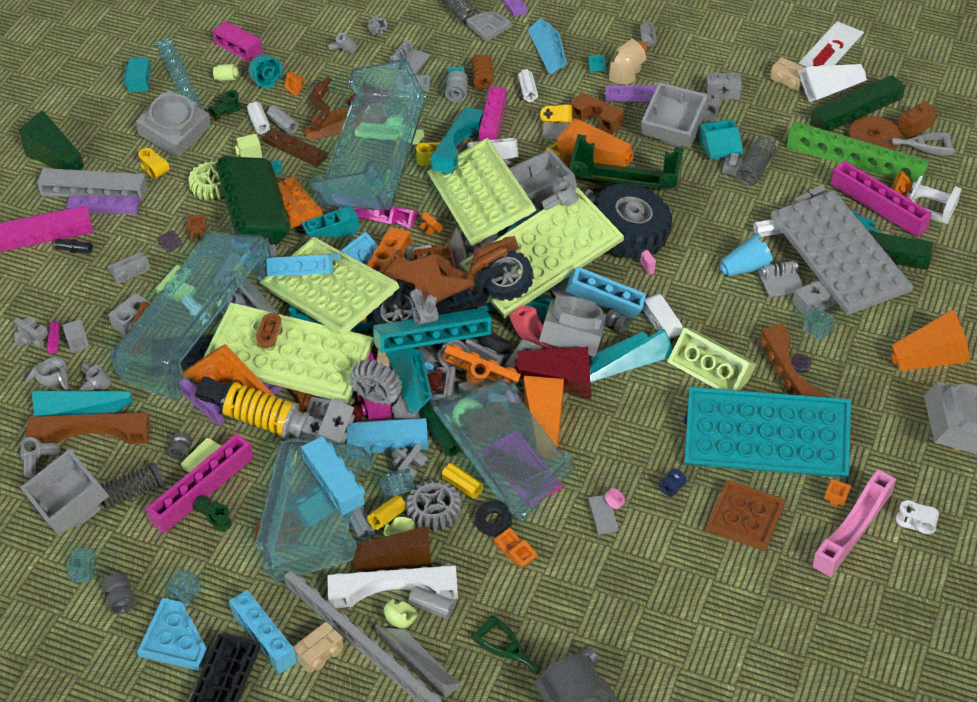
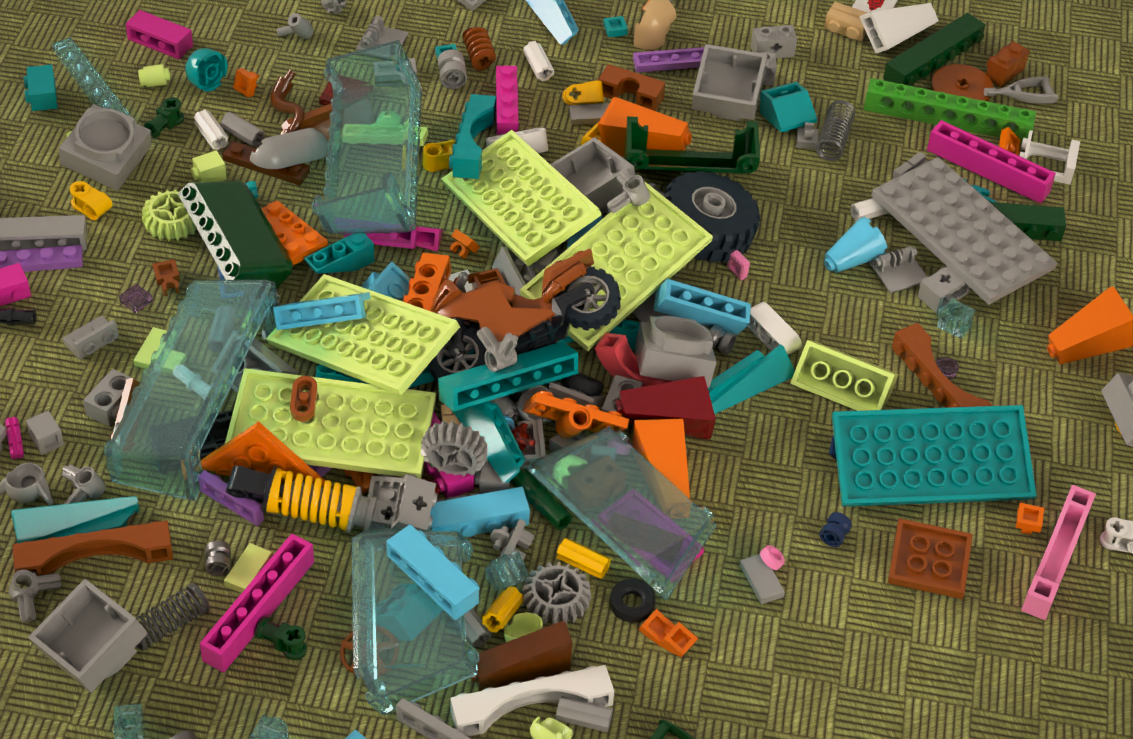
camera: 15 degrees left, 0 degrees up
(312, 137) = (290, 149): none -> light grey brick

